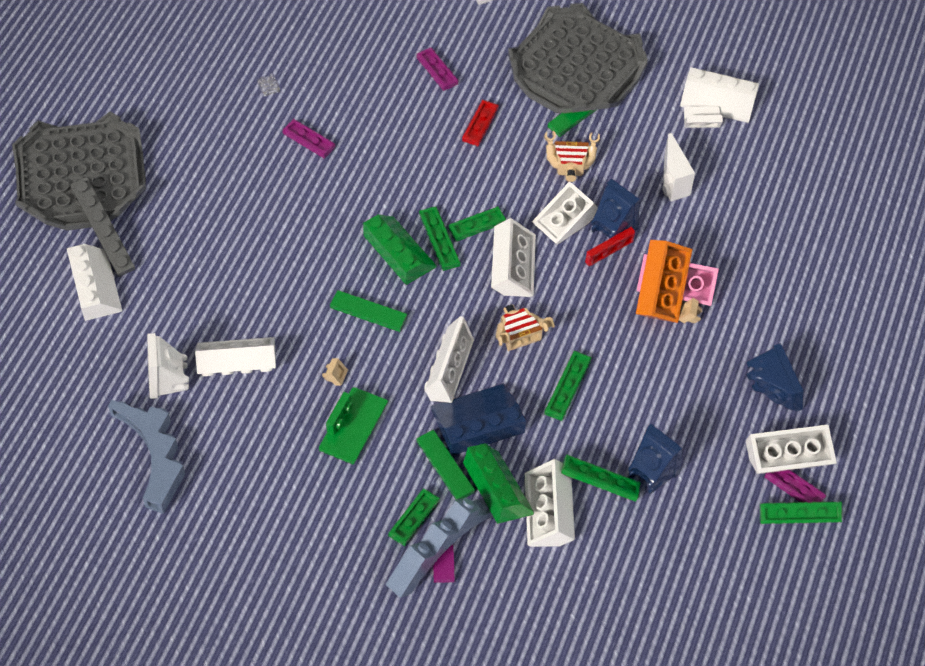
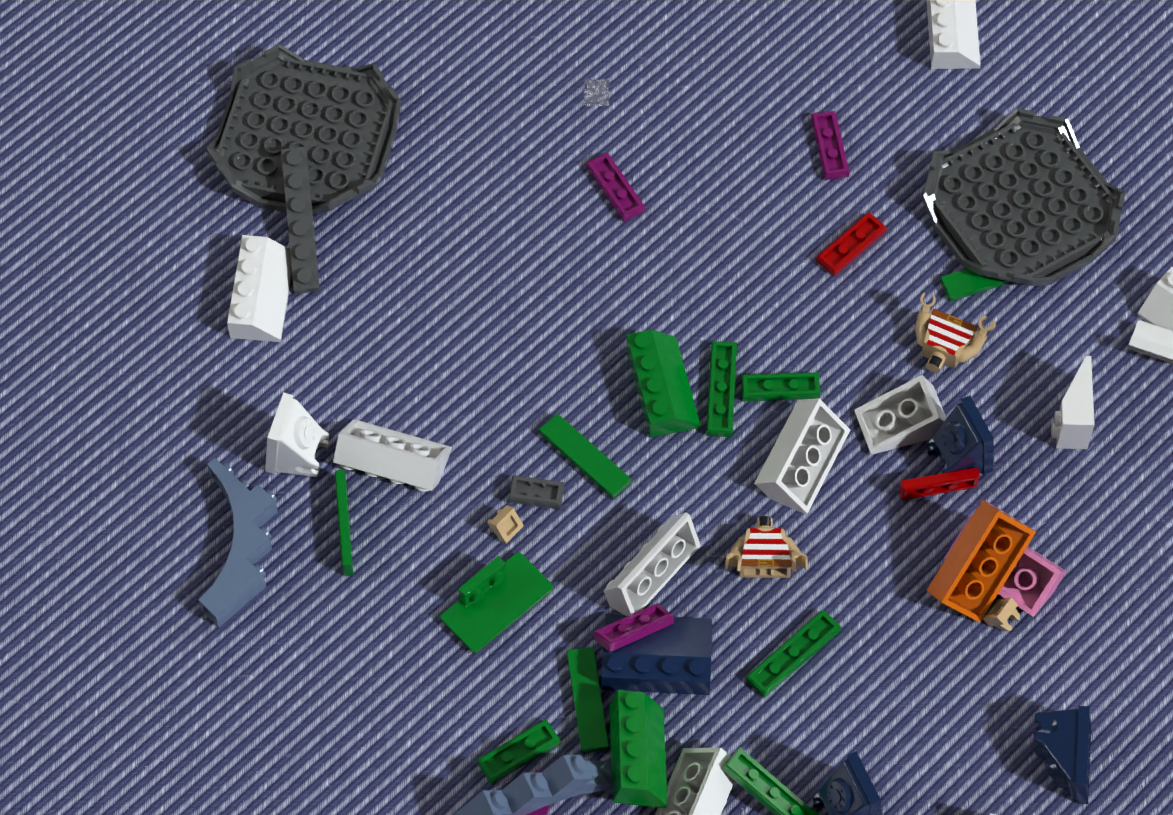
camera: 25 degrees right, 5 degrees up
(223, 411) = (344, 523): none -> green tile
(347, 344) = (536, 492): none -> dark grey plate
(455, 405) = (633, 627): none -> magenta tile

